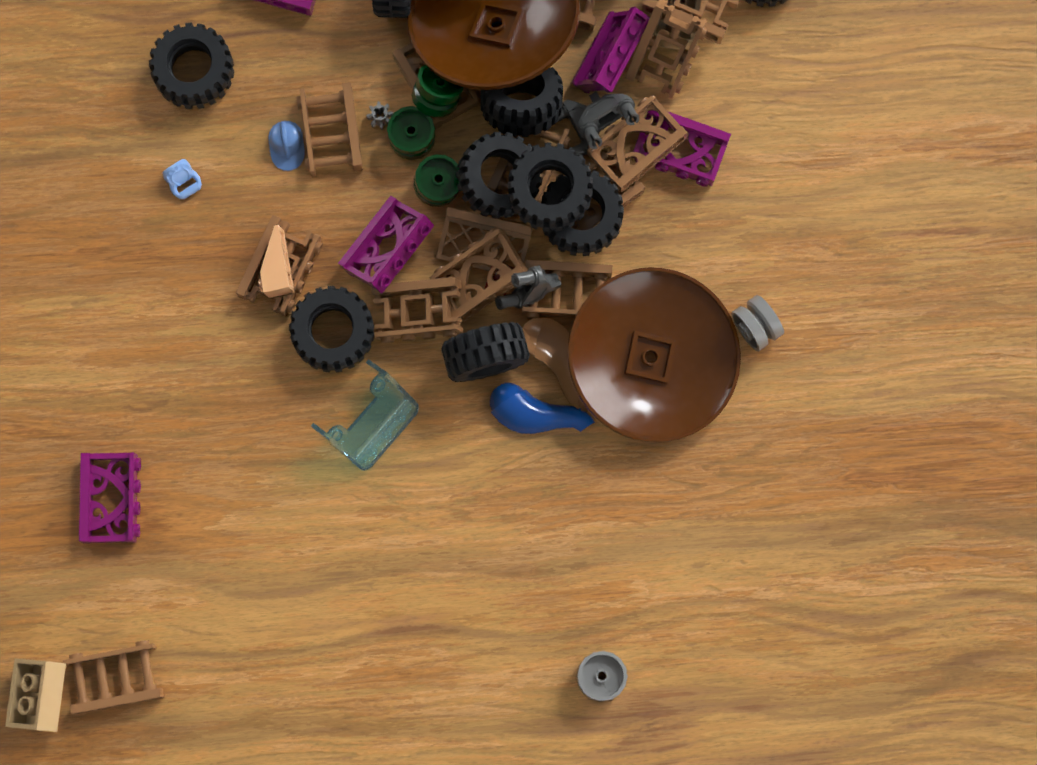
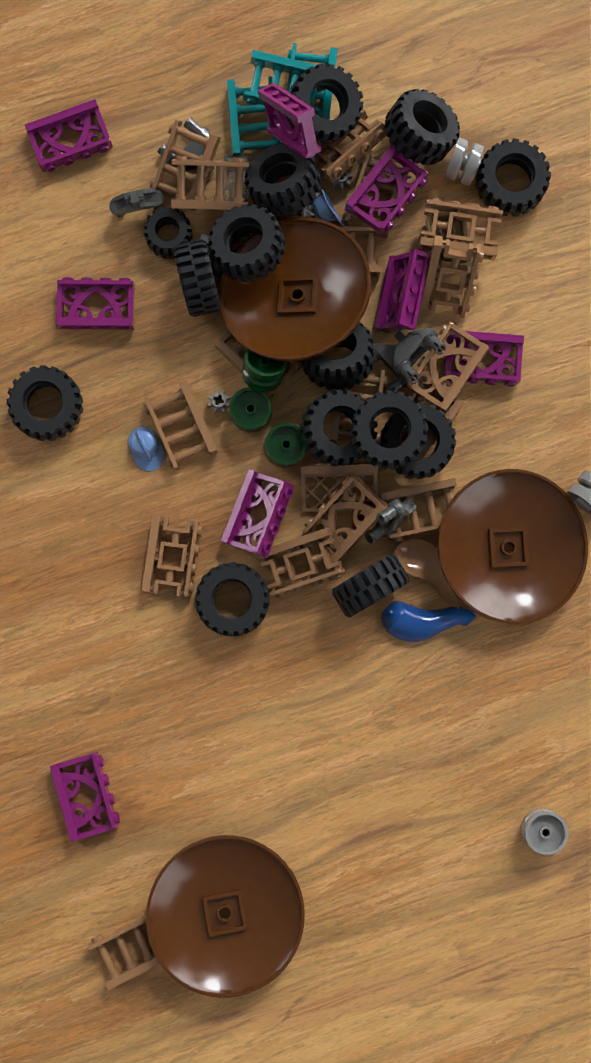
camera: 15 degrees left, 5 degrees up
(35, 695) = (73, 983): tan brick -> none
(179, 174) = (61, 500): light blue piece -> none
(180, 657) = (234, 952): none -> reddish brown dish
(276, 270) = (170, 562): light nougat slope -> none
(378, 423) = (292, 671): clear light blue windscreen -> none

